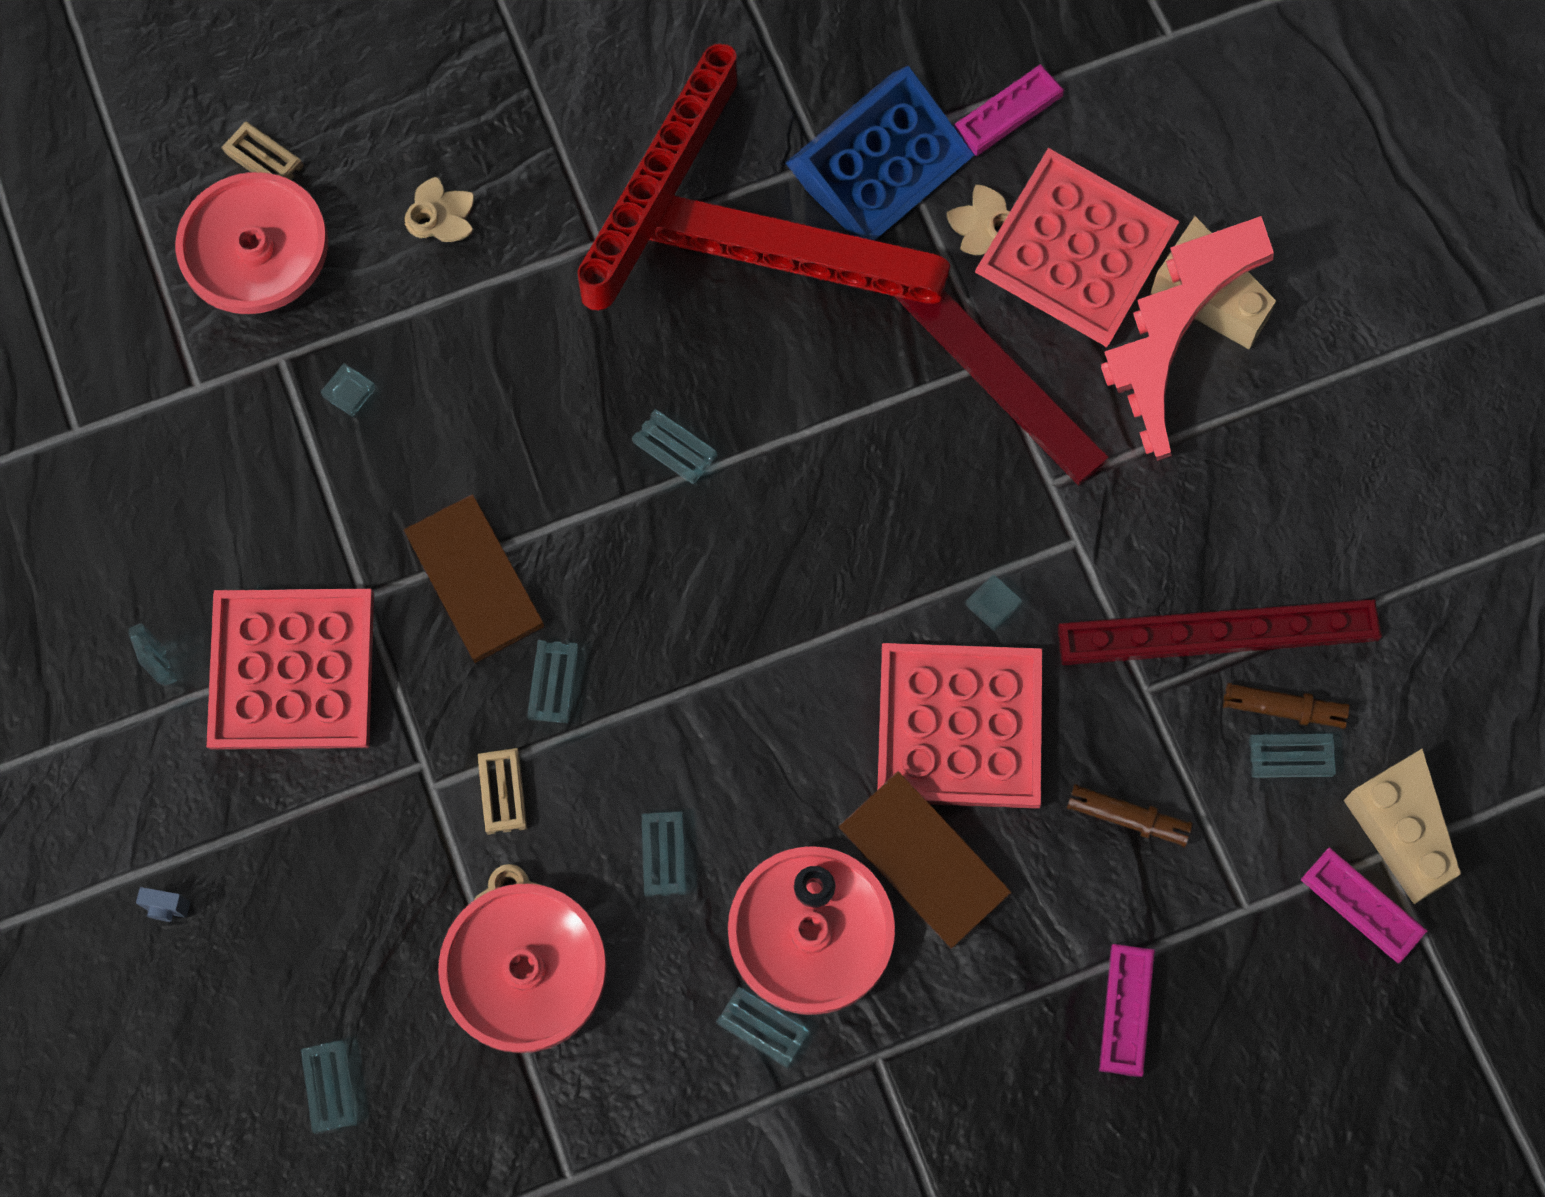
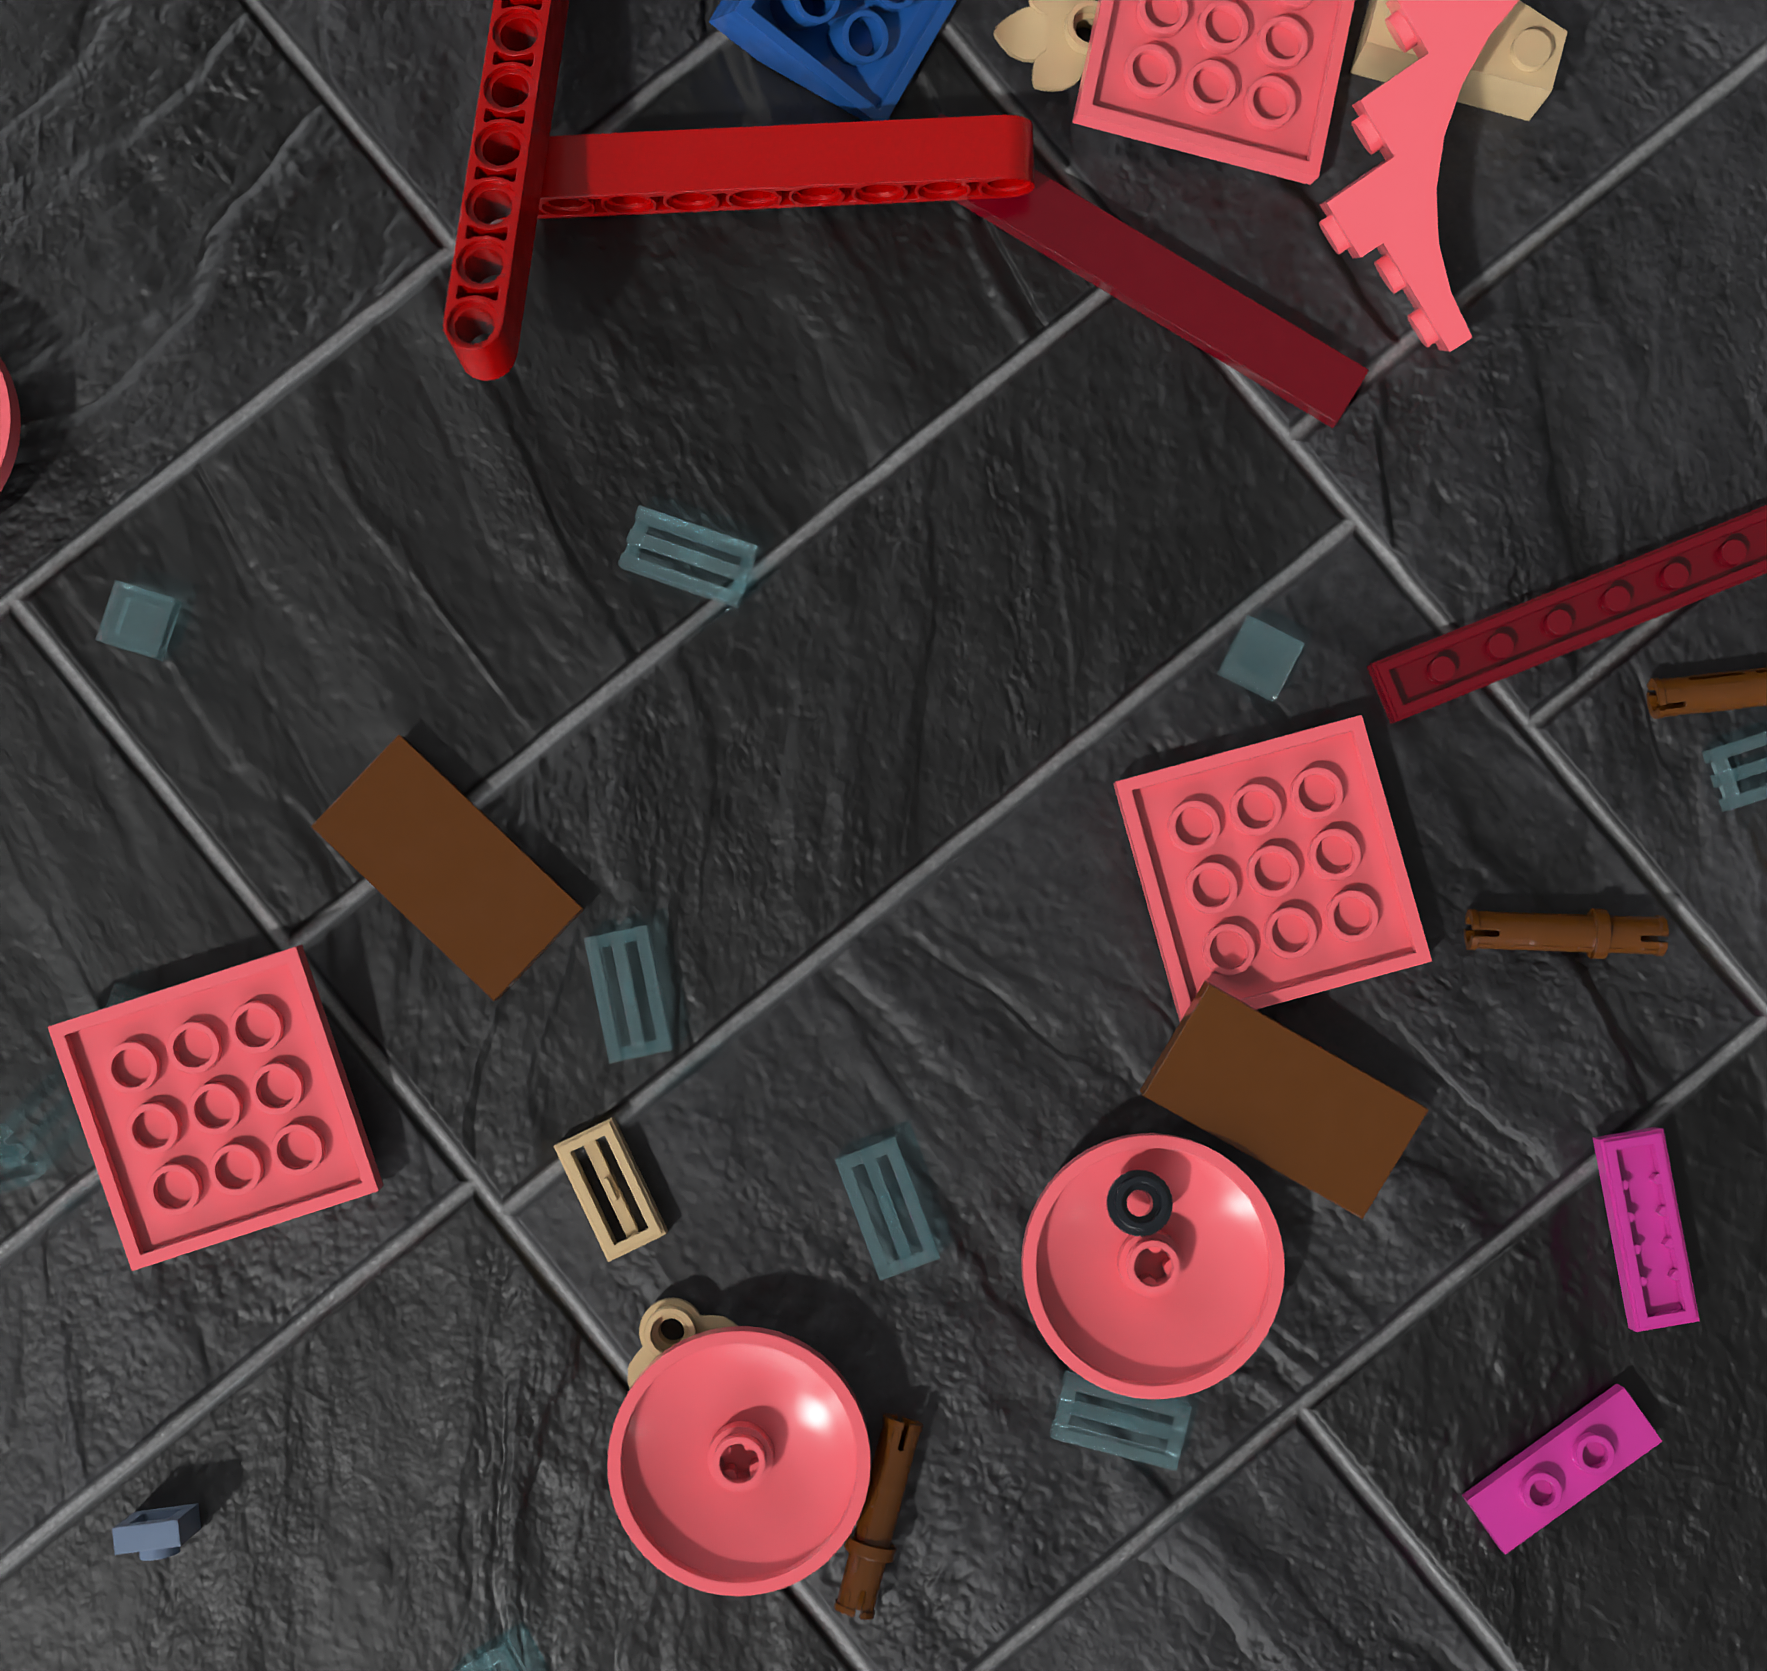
camera: 20 degrees left, 15 degrees up
(444, 209) = (185, 267): tan plate -> none
(585, 1049) = (871, 1542): none -> reddish brown pin
(1030, 1144) = (1561, 1468): none -> dark pink plate

